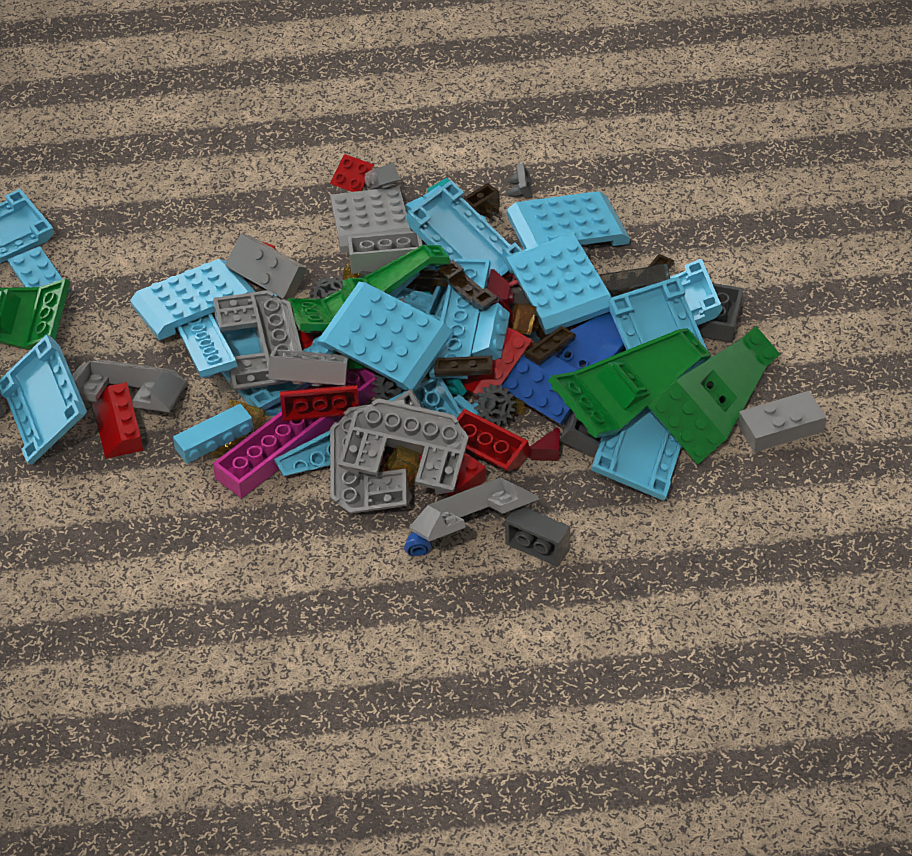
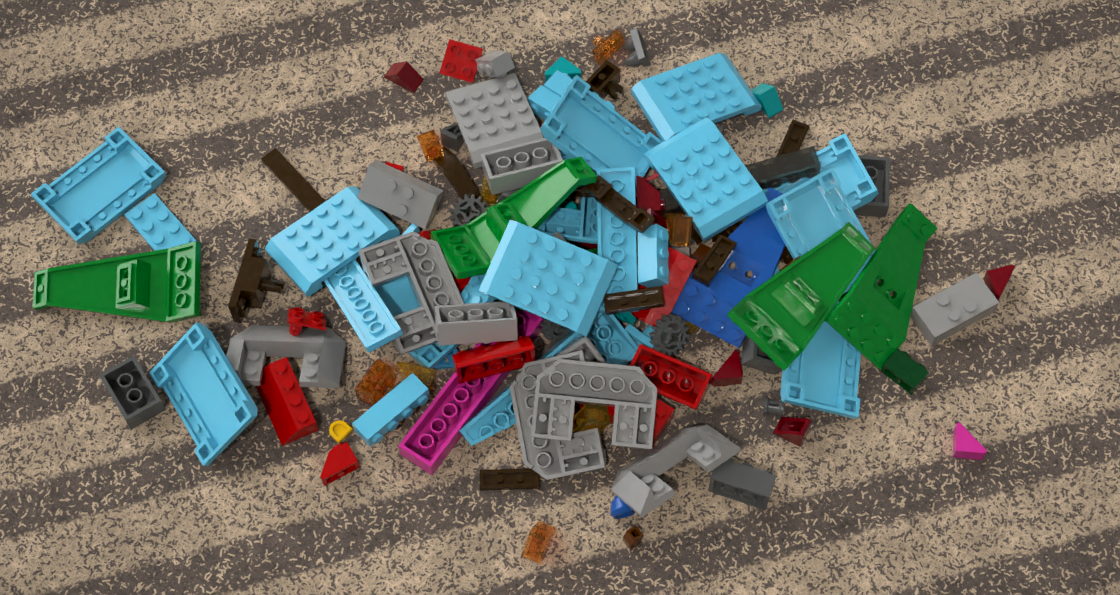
camera: 10 degrees left, 15 degrees up
(109, 322) = (252, 283): none -> dark brown brick
(144, 355) = (298, 317): none -> red hinge
(154, 476) = (338, 463): none -> red slope
(162, 452) = (339, 430): none -> yellow tile
(169, 249) = (292, 180): none -> dark brown tile
(203, 410) = (375, 383): none -> clear orange brick
(296, 181) = (404, 76): none -> dark red slope
(305, 235) = (430, 145): none -> clear orange brick
(314, 510) = (509, 479): none -> dark brown tile
(323, 259) = (456, 174): none -> dark brown slope
(327, 232) = (452, 137): none -> dark grey slope
(328, 563) = (538, 541): none -> clear orange slope
(421, 569) = (633, 537): none -> reddish brown piece
(494, 176) = (607, 47): none -> clear orange tile
(585, 481) = (773, 407): none -> dark grey bush
(601, 502) = (793, 429): none -> dark red slope
(639, 236) = (768, 99): none -> teal slope
(721, 466) = (904, 371): none -> dark green brick
(769, 534) = (966, 445): none -> dark pink slope
(833, 402) = (998, 278): none -> dark red slope

